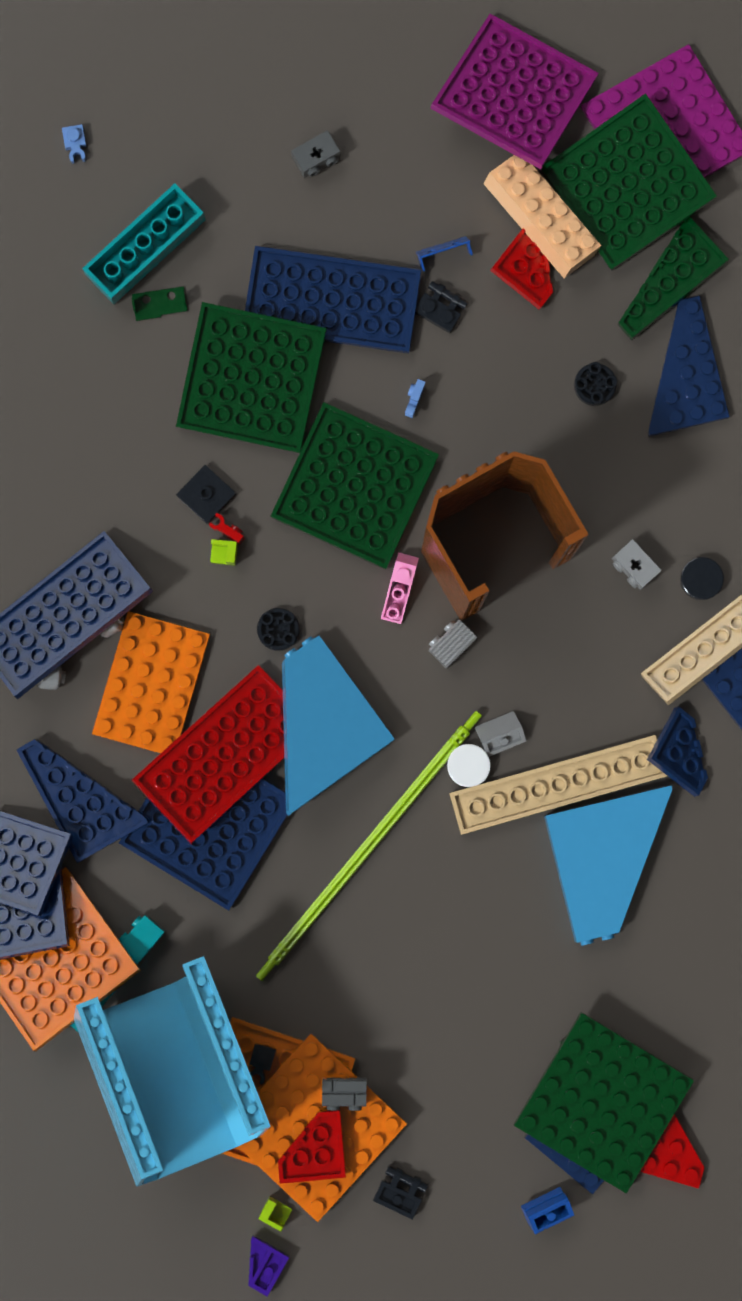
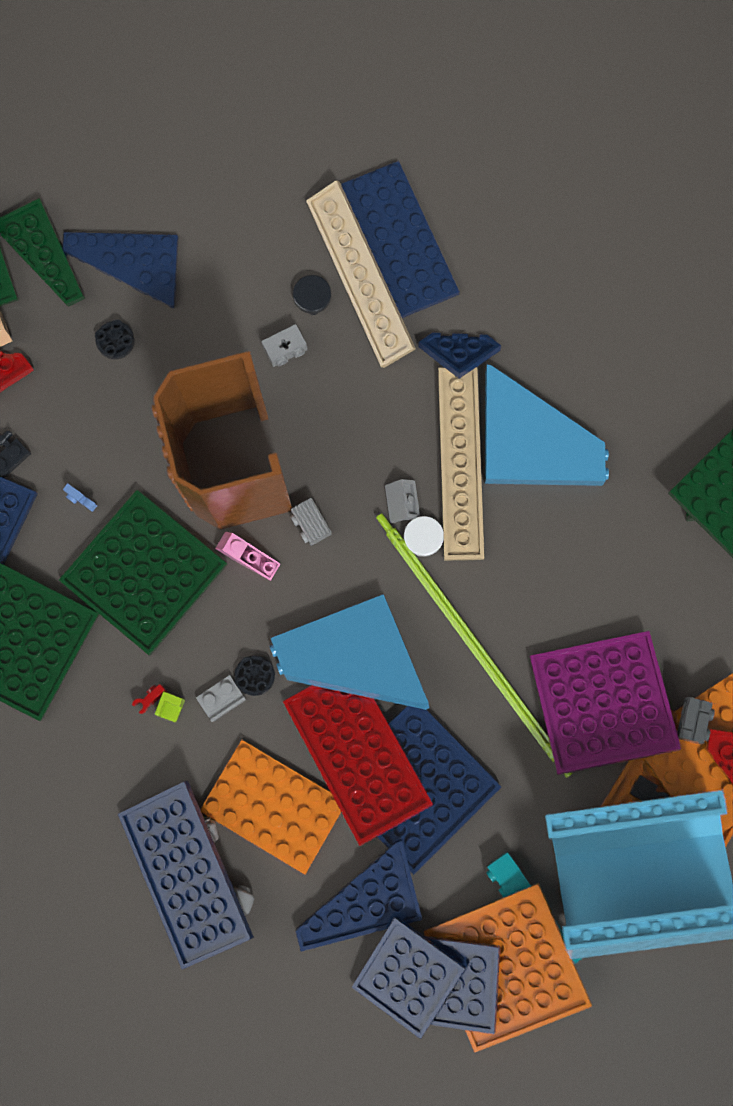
camera: 70 degrees left, 5 degrees down
(206, 494) = (111, 710): black plate -> none
(245, 601) = (221, 698): none -> light grey plate
(340, 995) = (604, 703): none -> magenta plate

